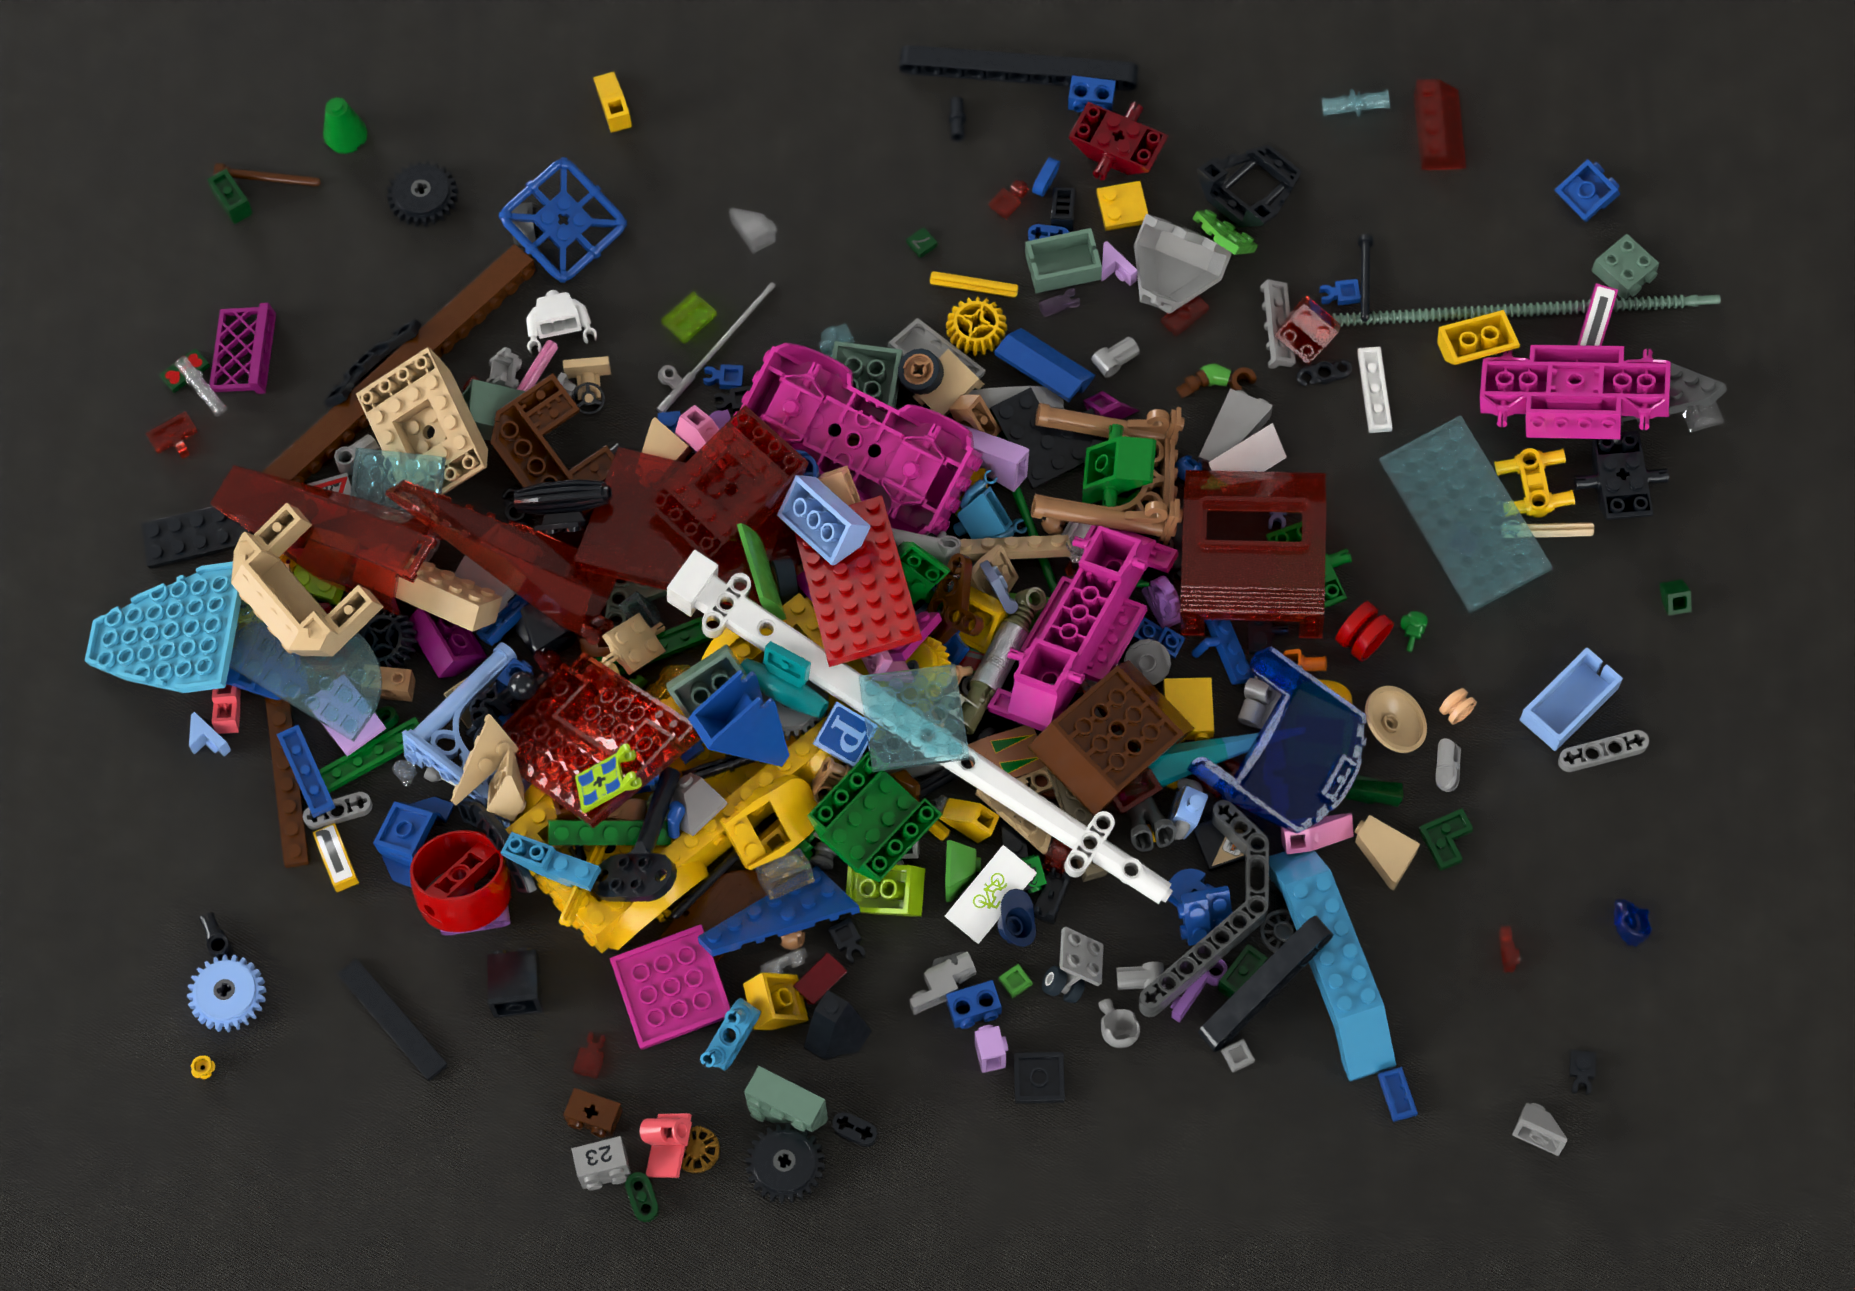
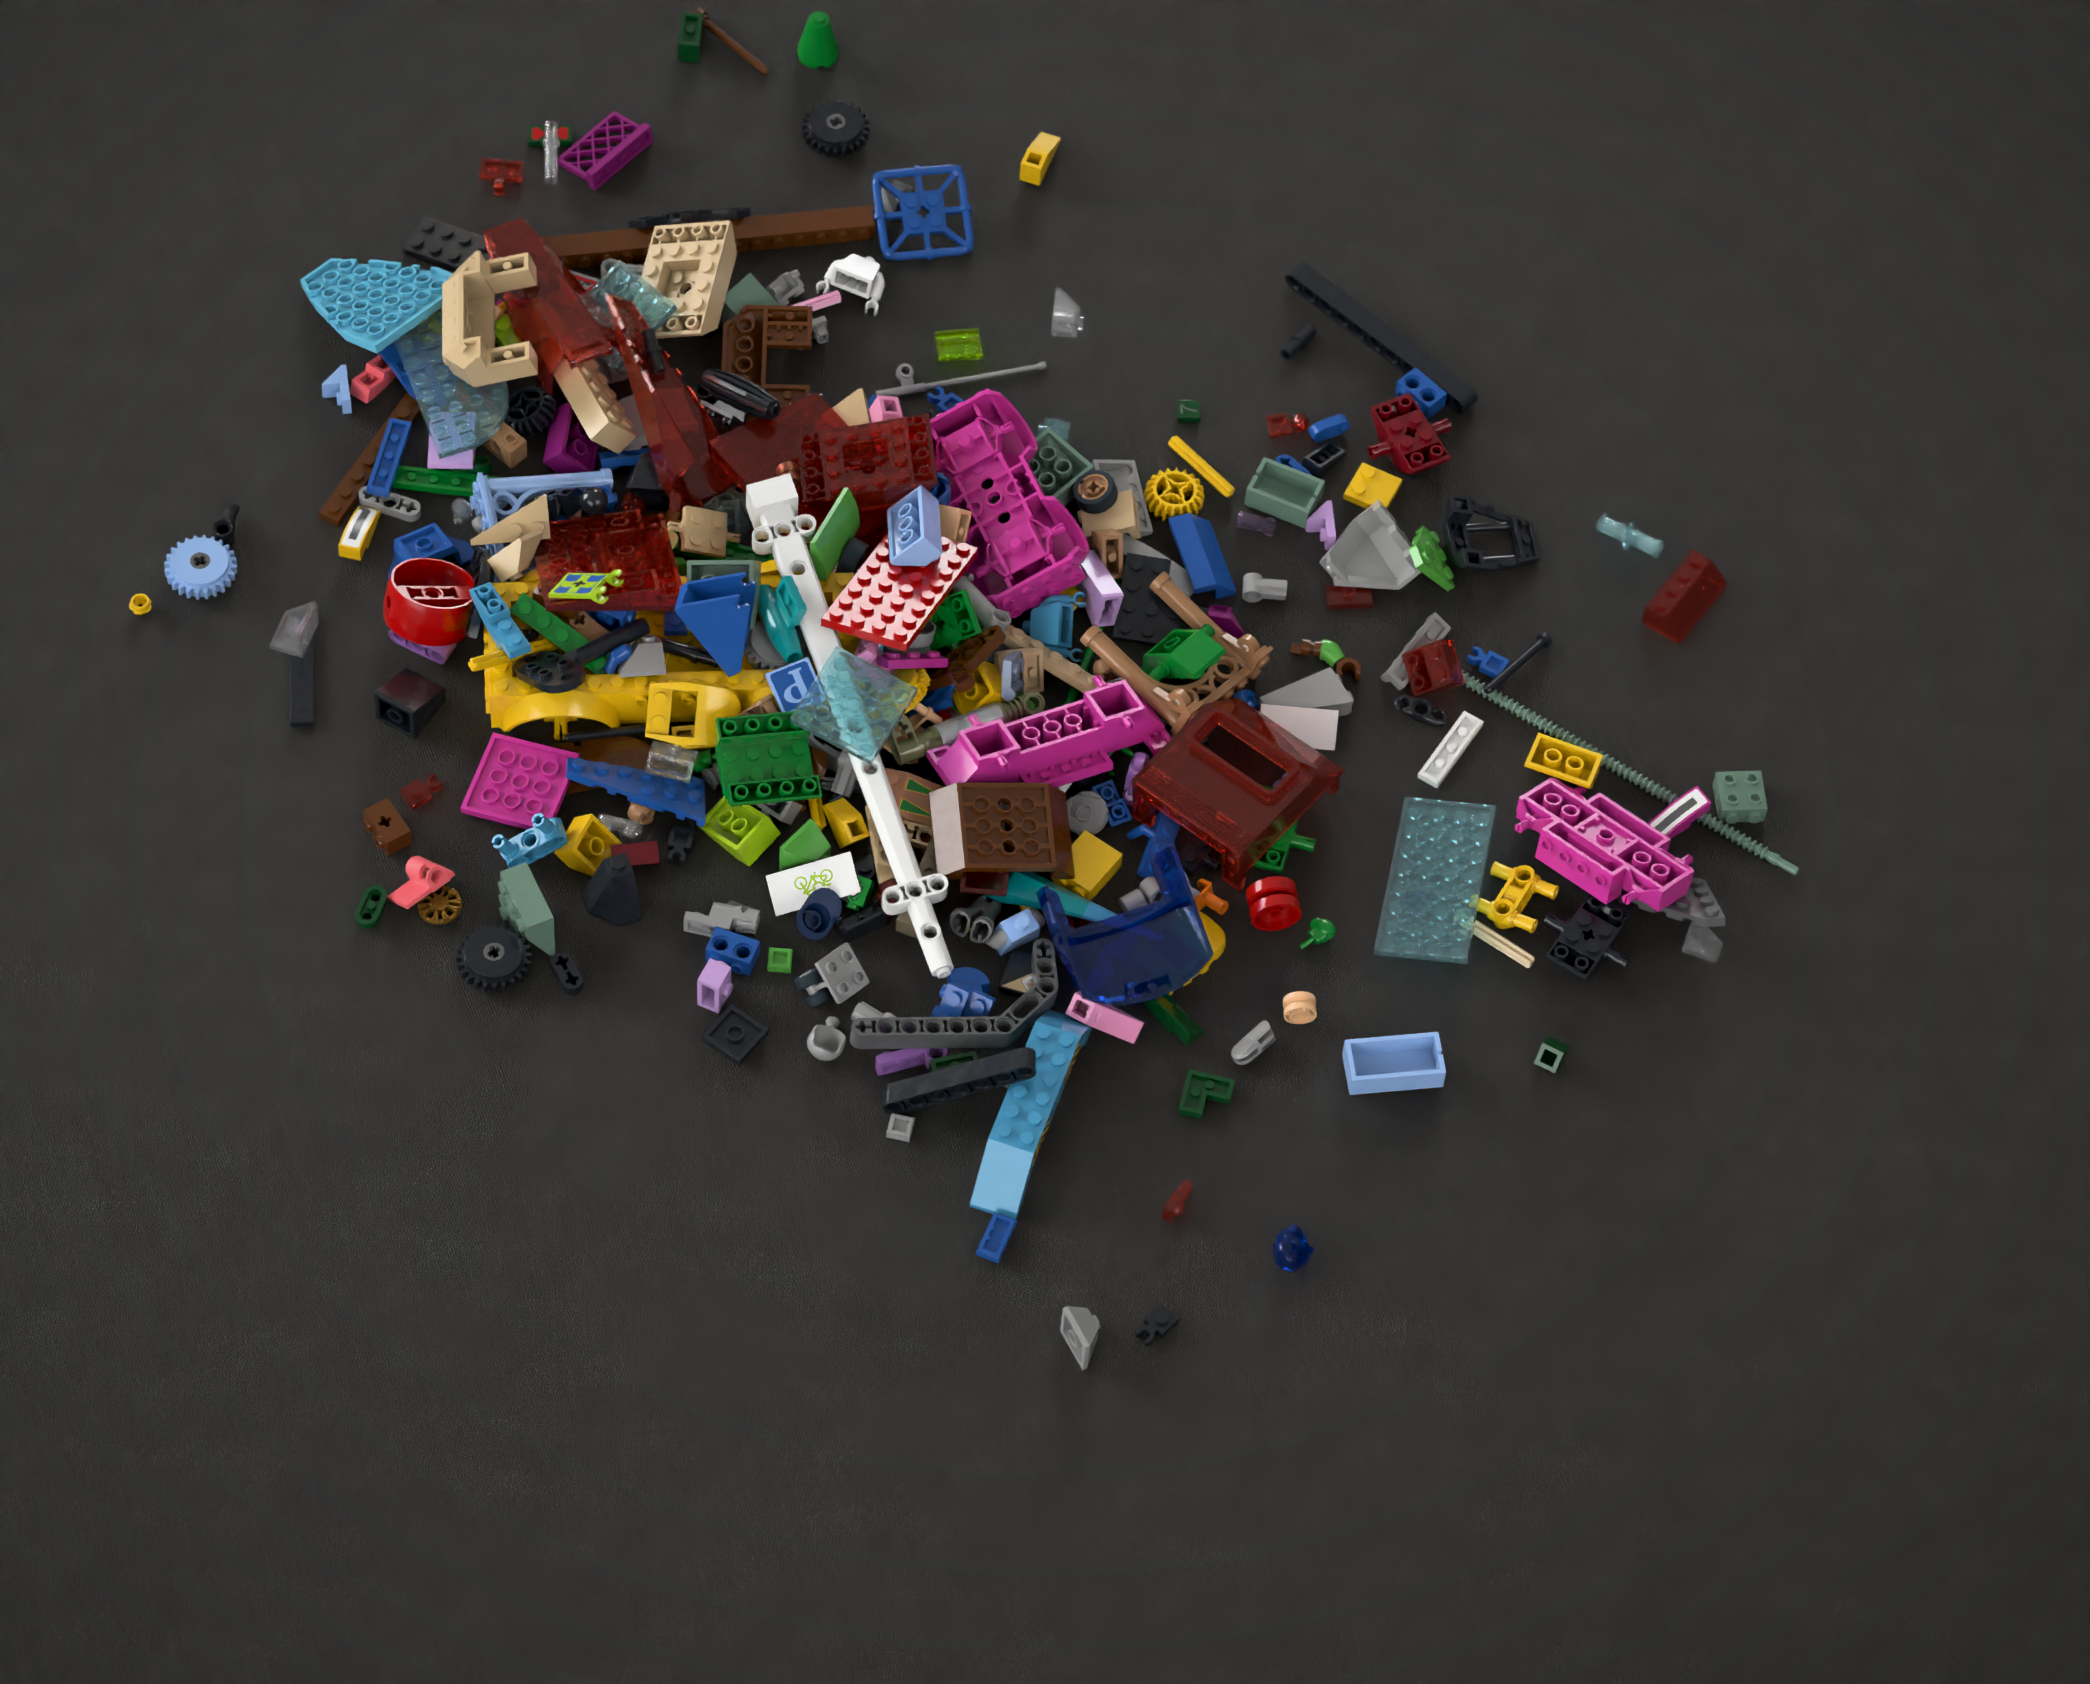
camera: 30 degrees right, 10 degrees down
(360, 991) = (296, 630): none -> clear slope
(459, 512) = (653, 351): none -> black pin
(588, 379) = (846, 334): tan piece -> none
(601, 1163) = (361, 859): light grey brick -> none
(670, 544) = (792, 468): none -> copper wheel
(936, 780) = (845, 776): none -> light grey piece
(1386, 849) = (1149, 1068): tan slope -> none
(1396, 719) = (1249, 978): tan dish -> none
(1588, 190) = (1762, 722): blue plate -> none
(1605, 754) = (1390, 1116): light grey beam -> none

